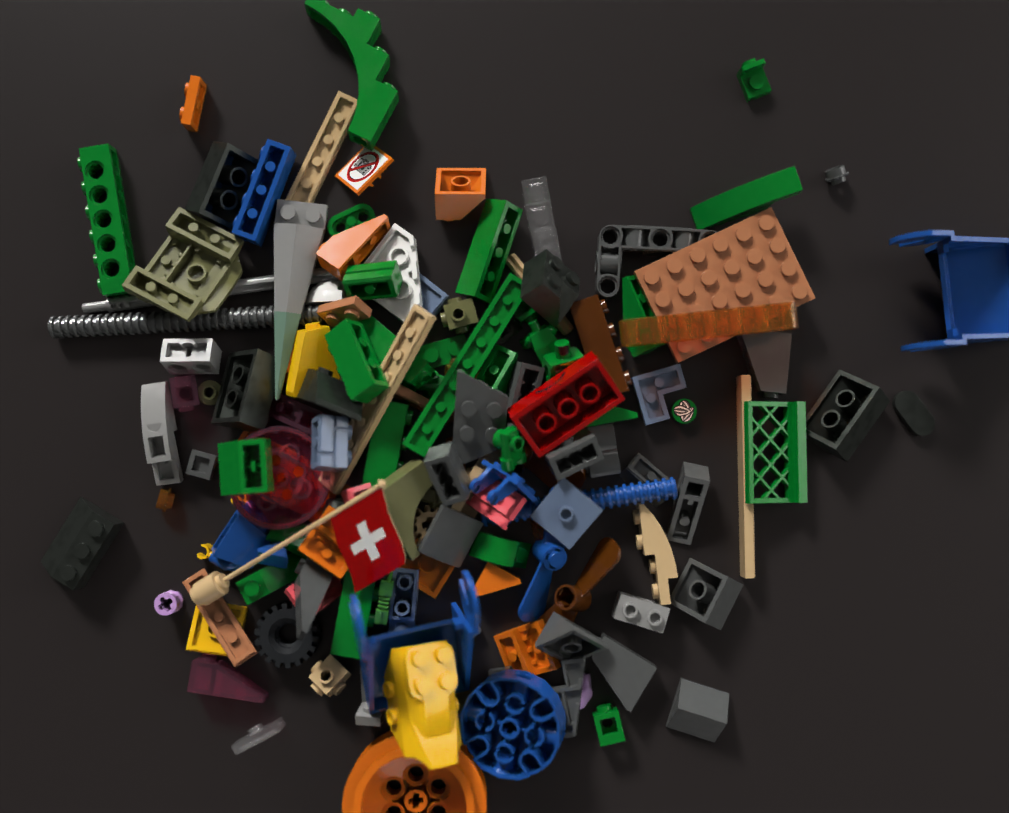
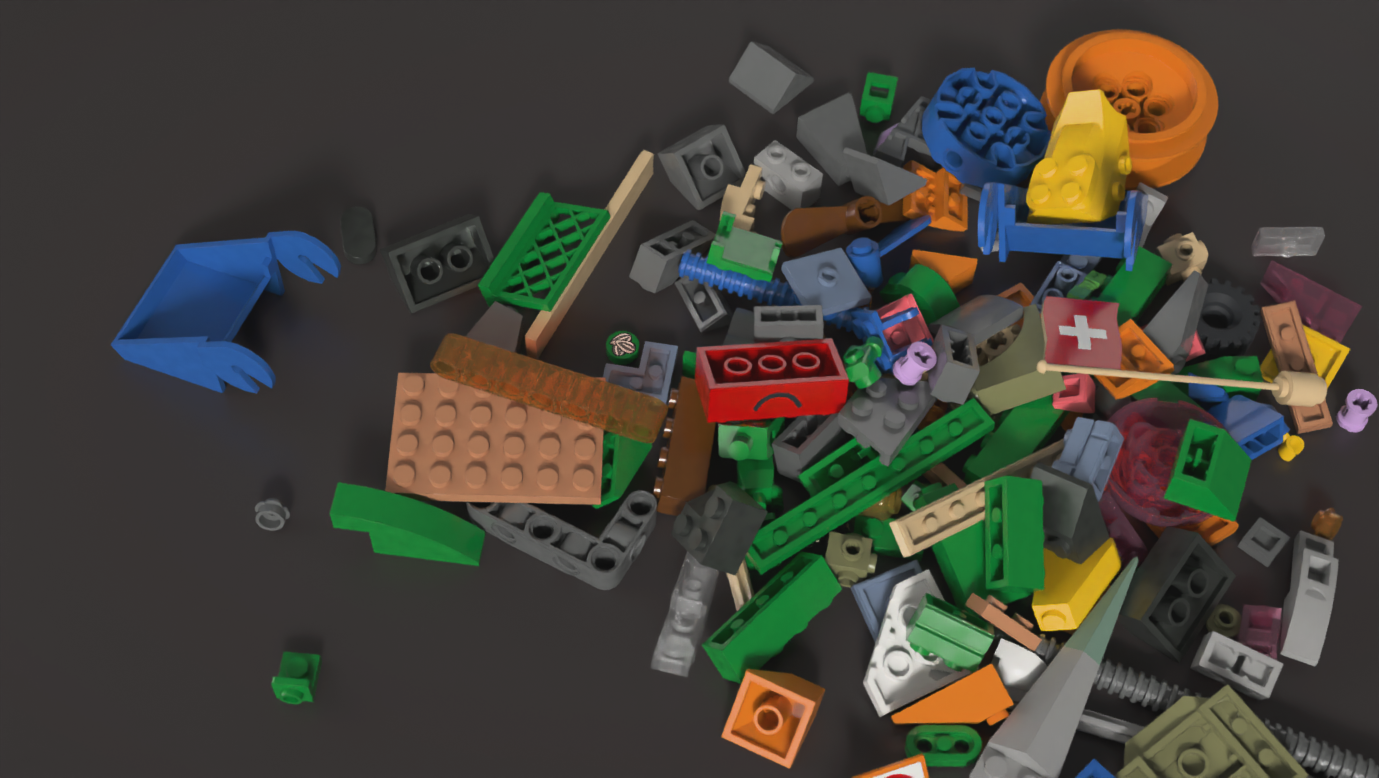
camera: 155 degrees left, 30 degrees down
(480, 466) = (919, 358): none -> lavender bush
(635, 512) = (743, 250): none -> green piece

